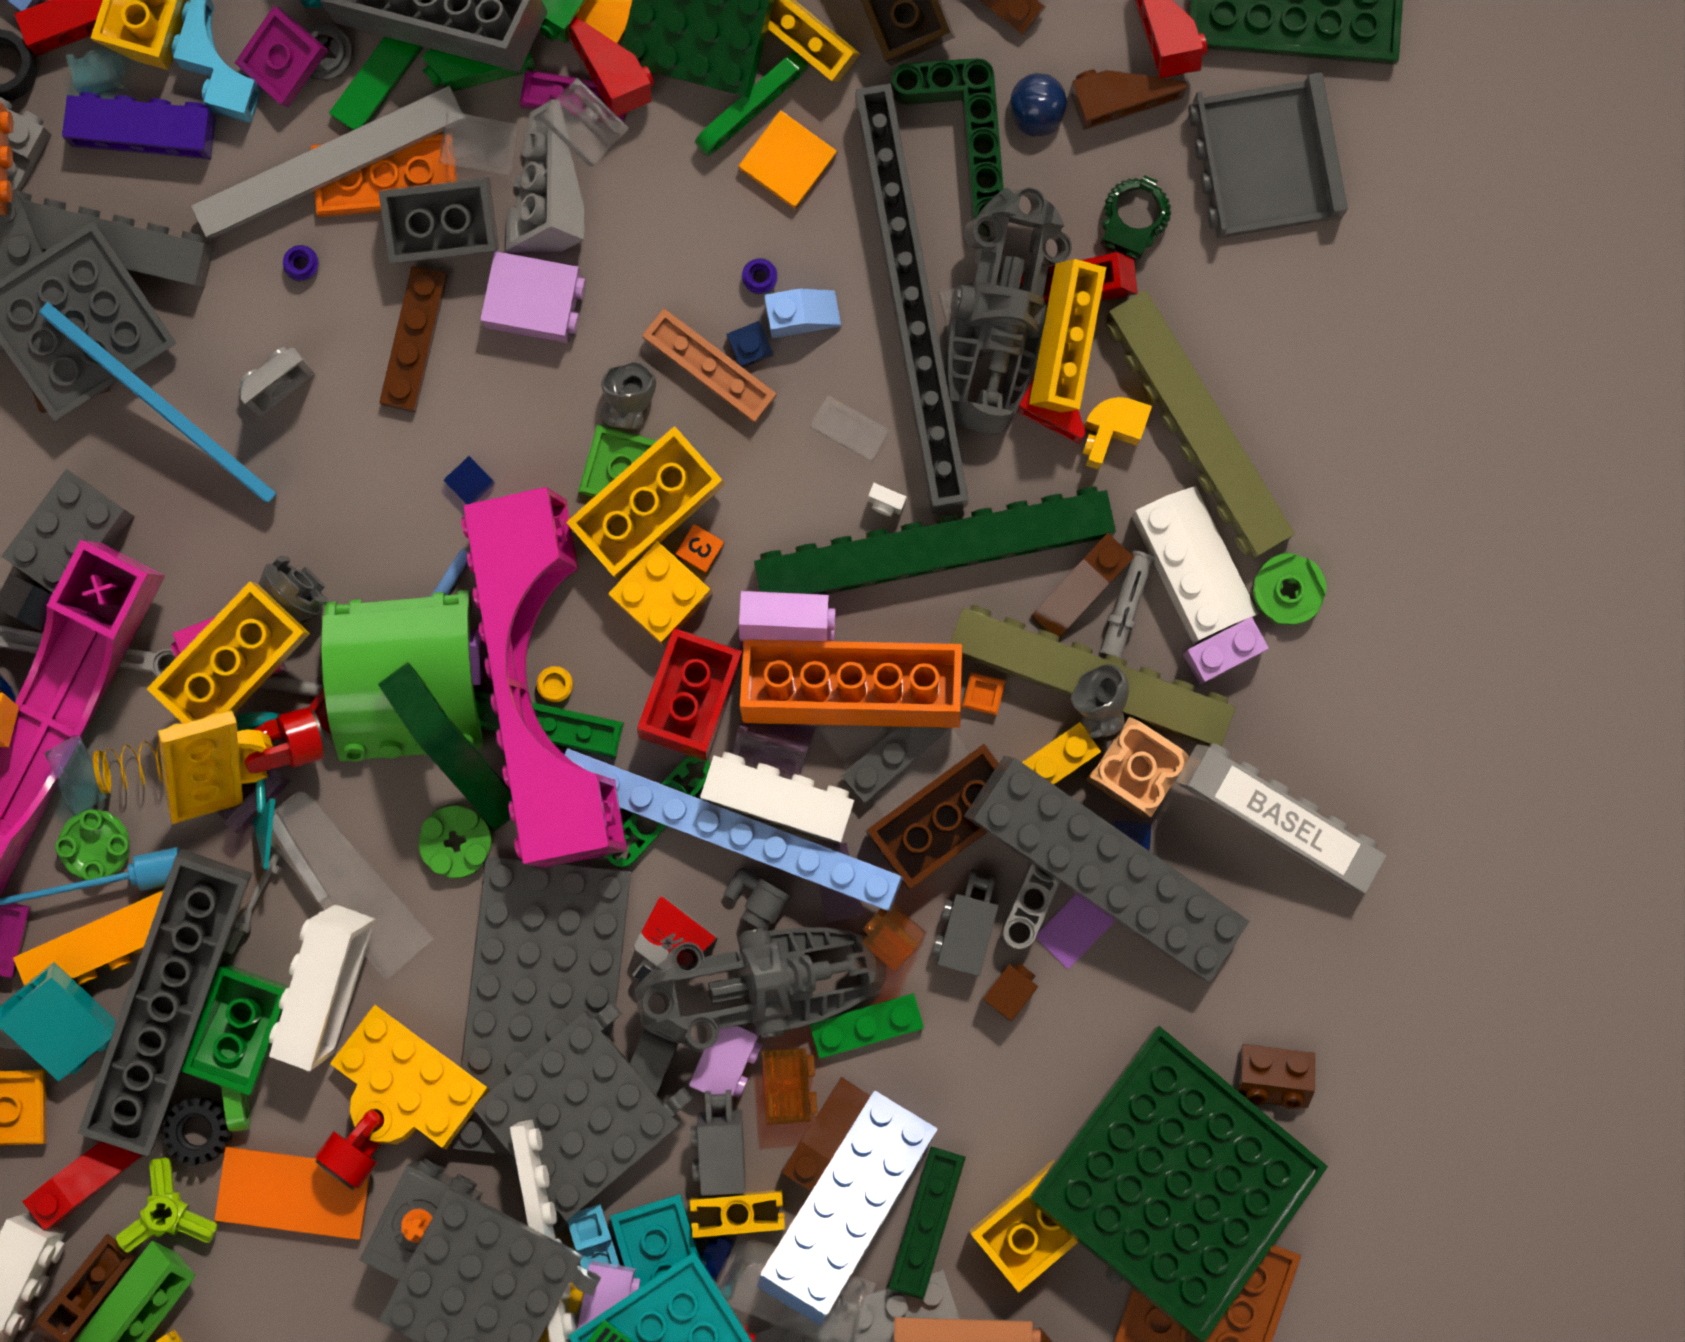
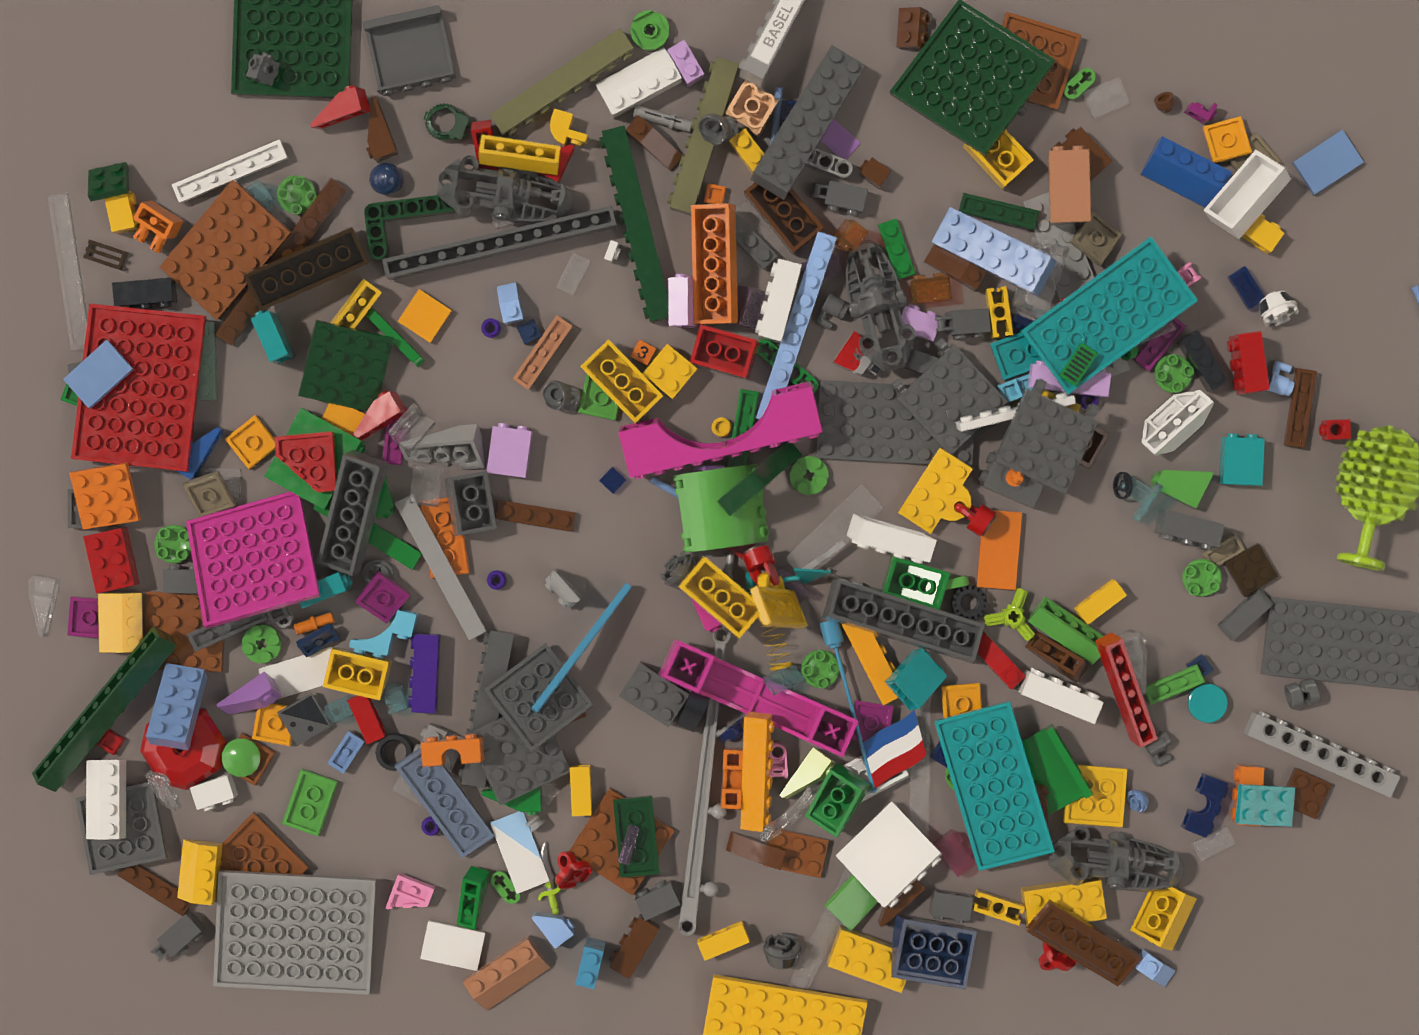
camera: 90 degrees left, 5 degrees up
(1130, 814) = (776, 113): none -> medium blue bar

